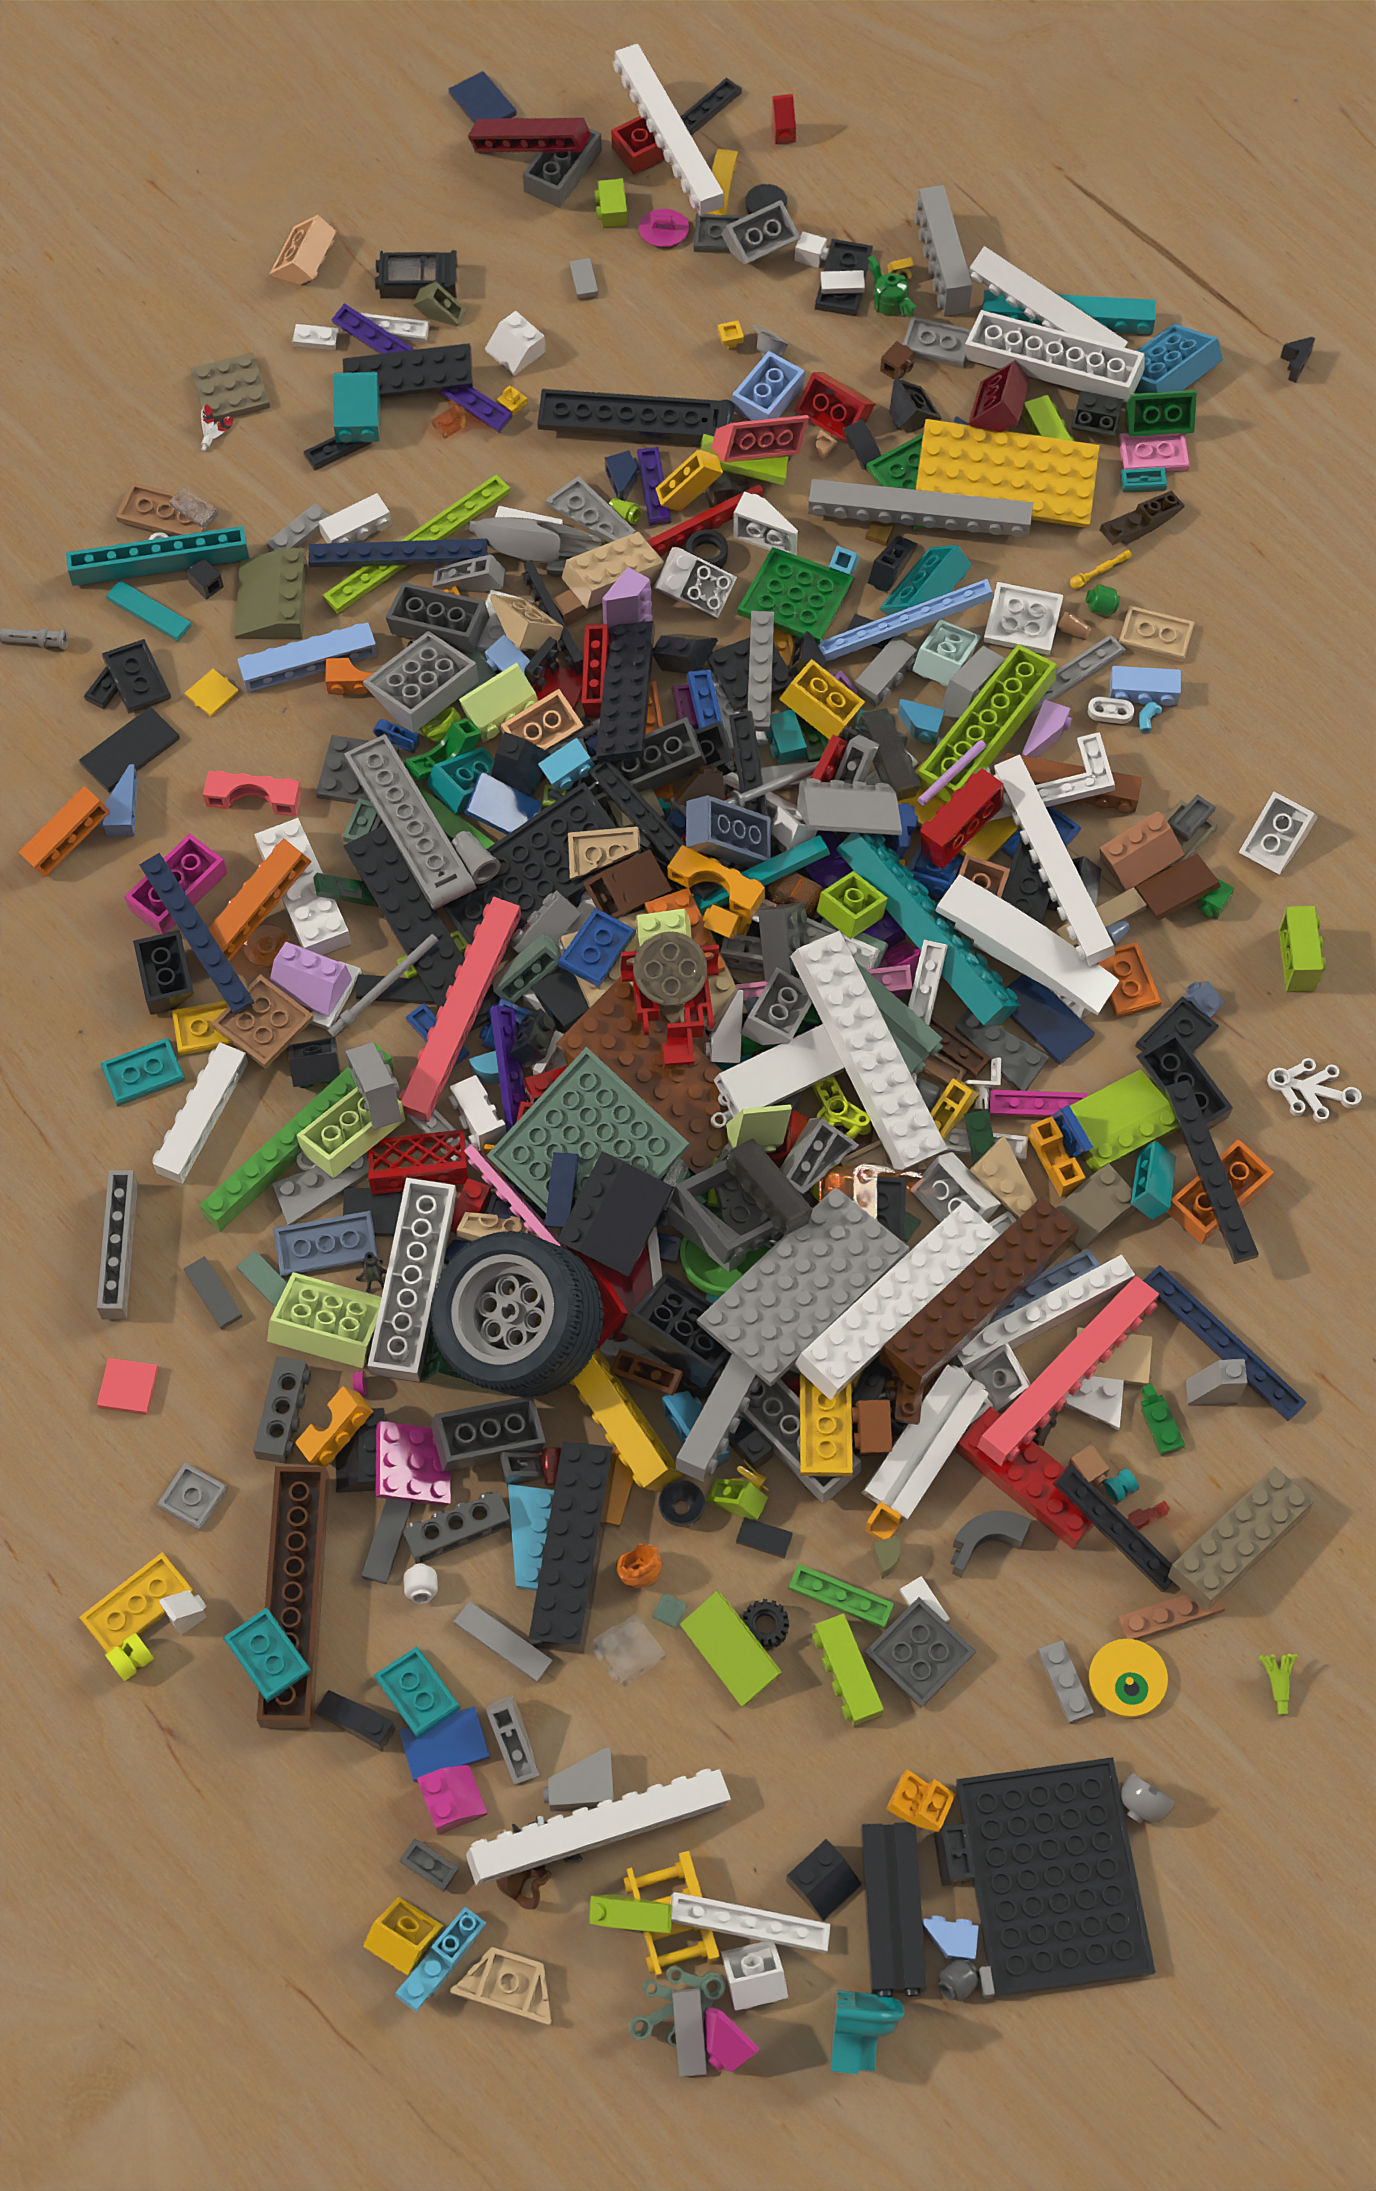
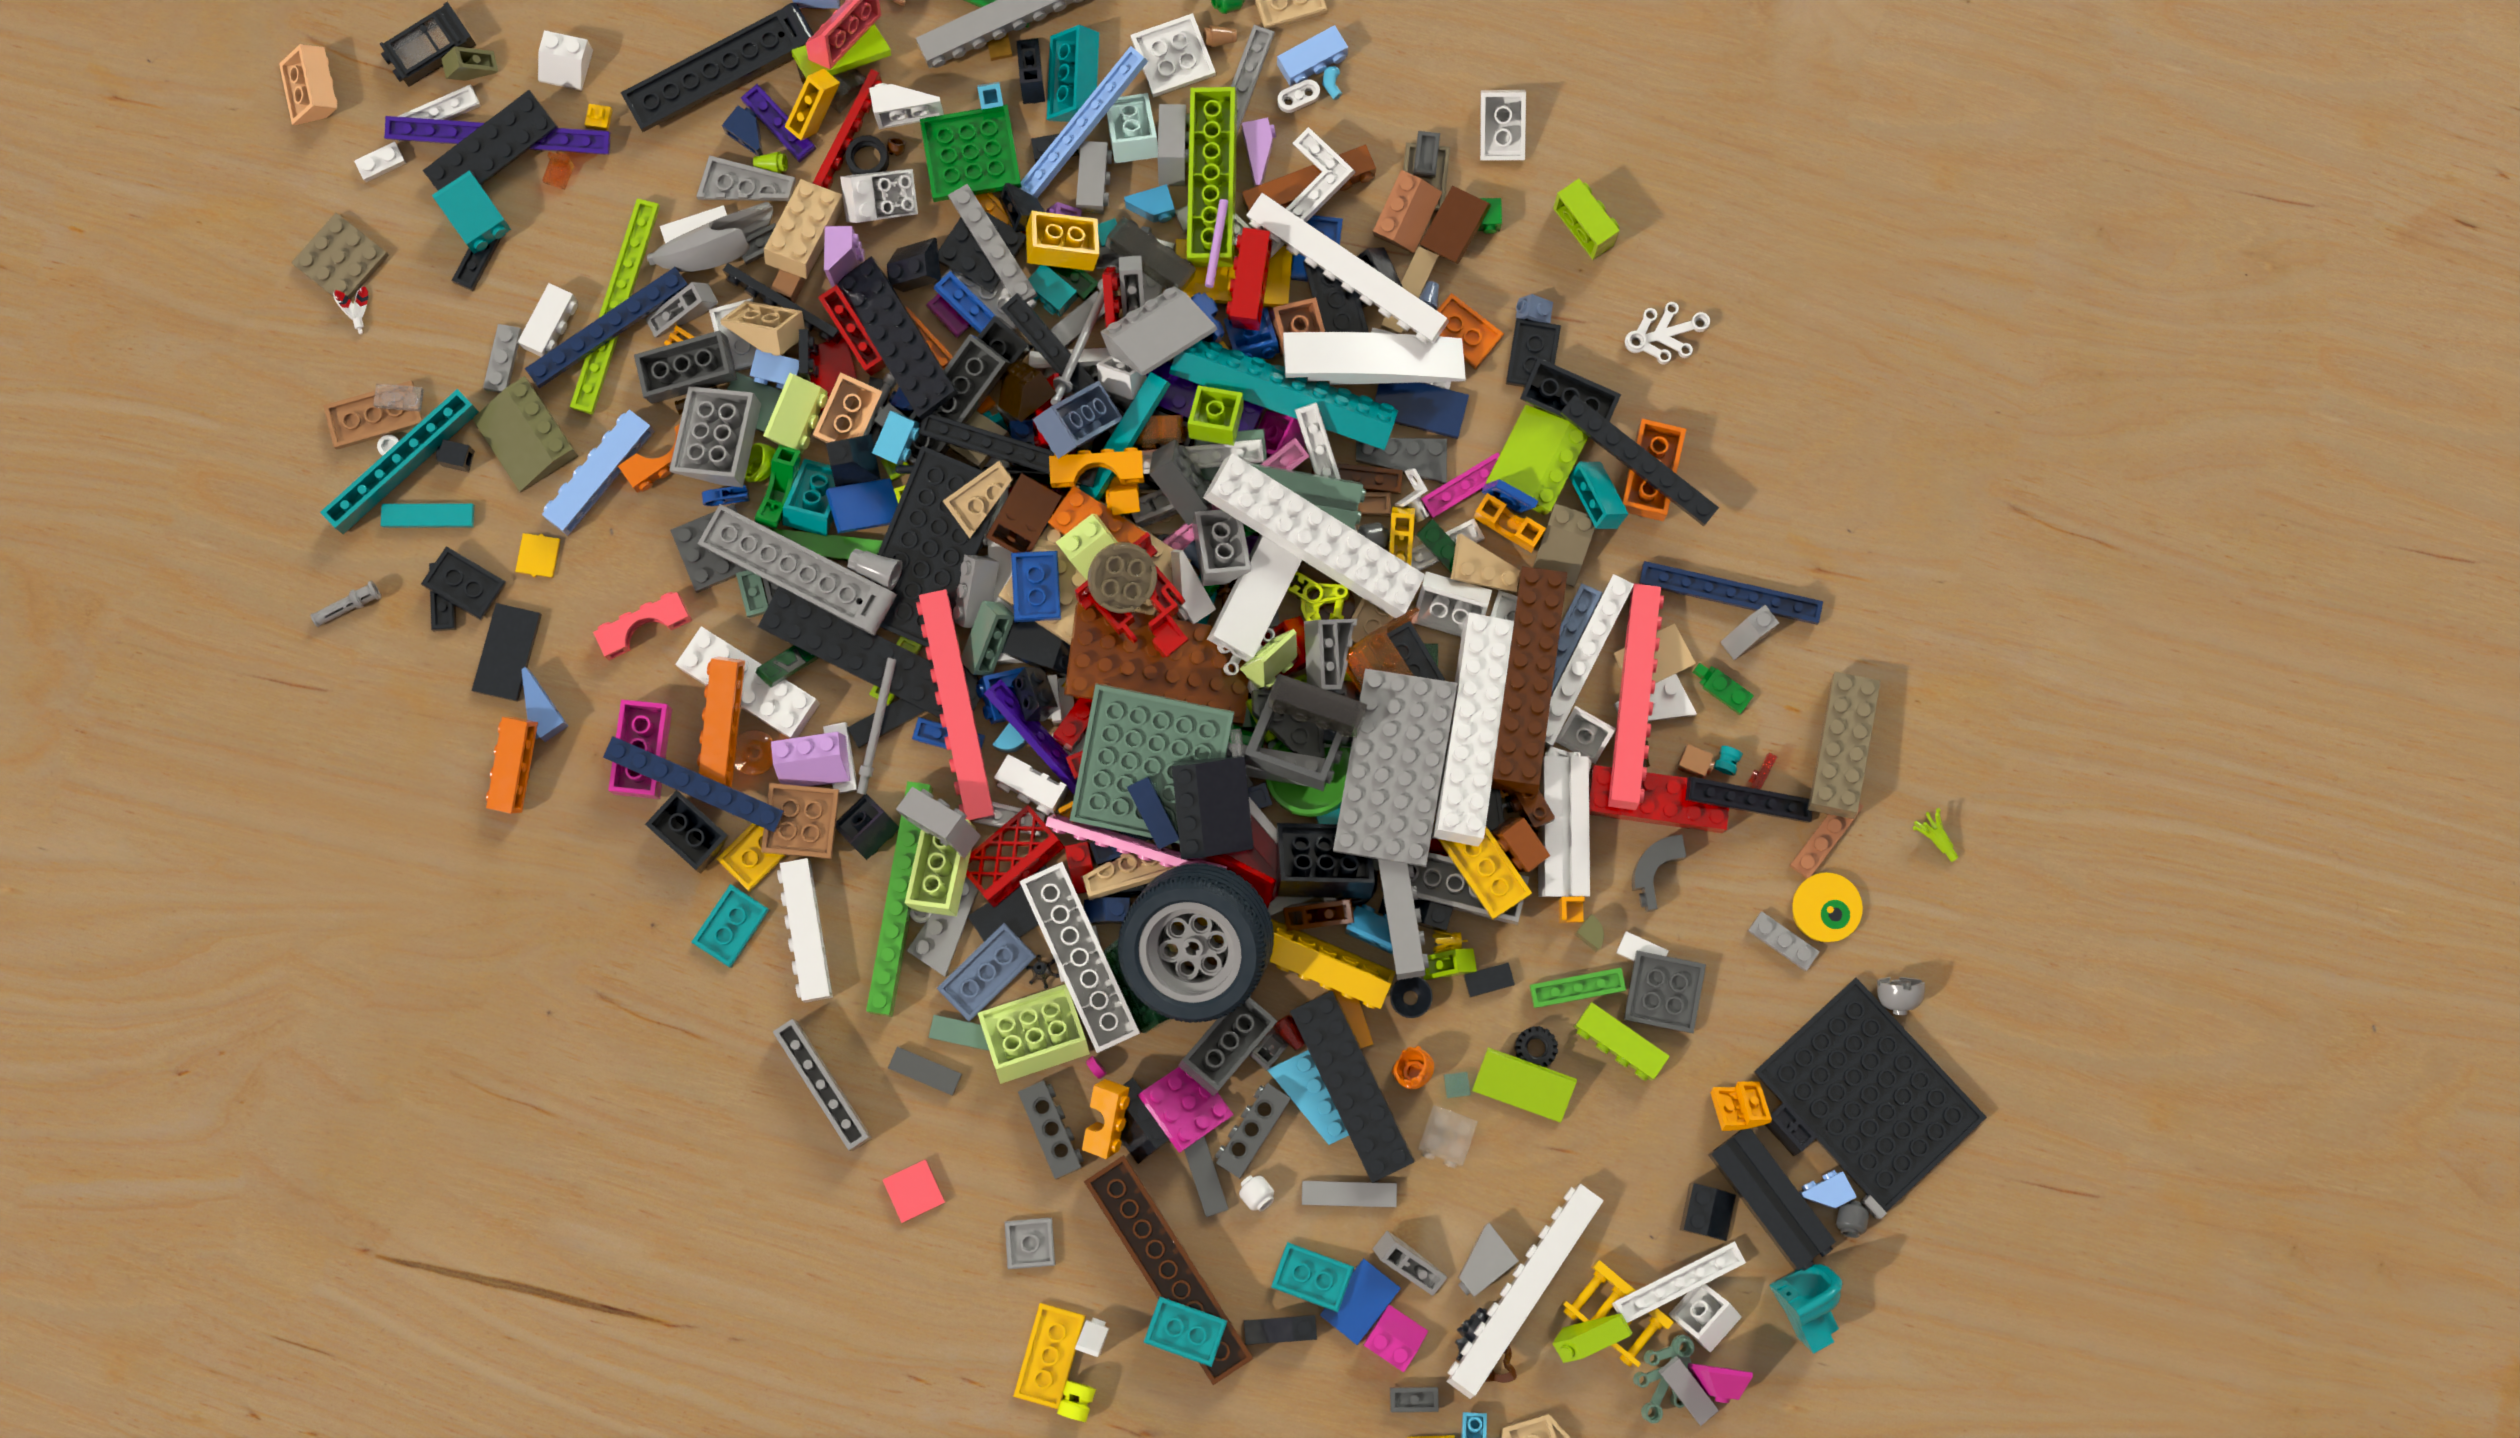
camera: 35 degrees left, 15 degrees up
(737, 556) = (896, 146): none -> reddish brown hinge

